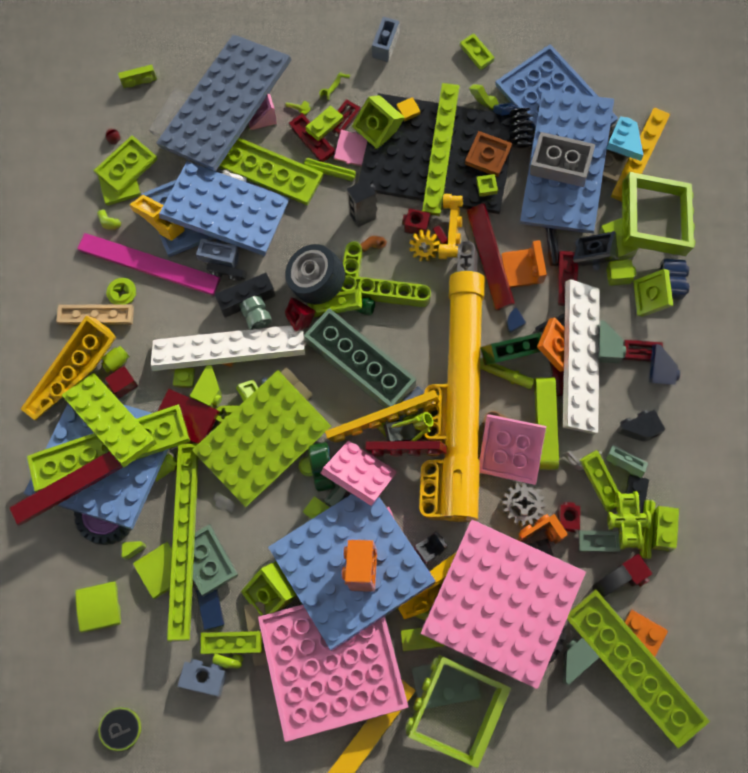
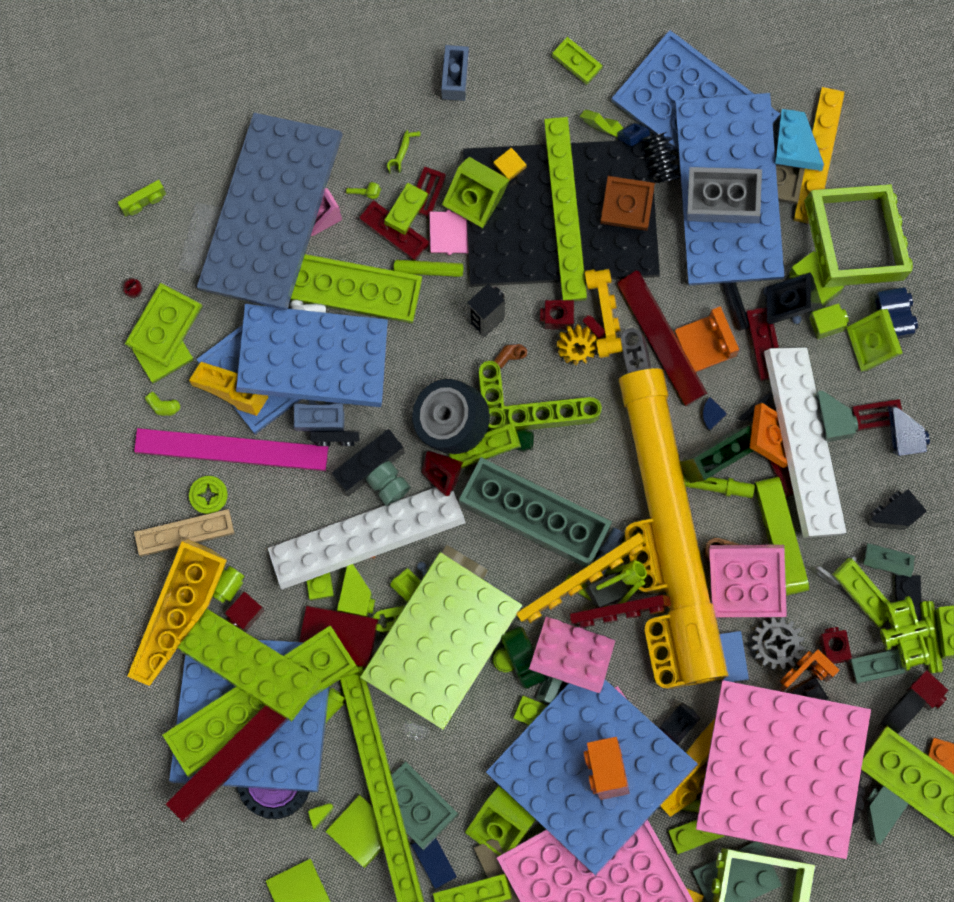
camera: 15 degrees left, 5 degrees up
(487, 185) = (636, 246): lime plate -> none
(487, 506) = (734, 656): none -> medium blue tile

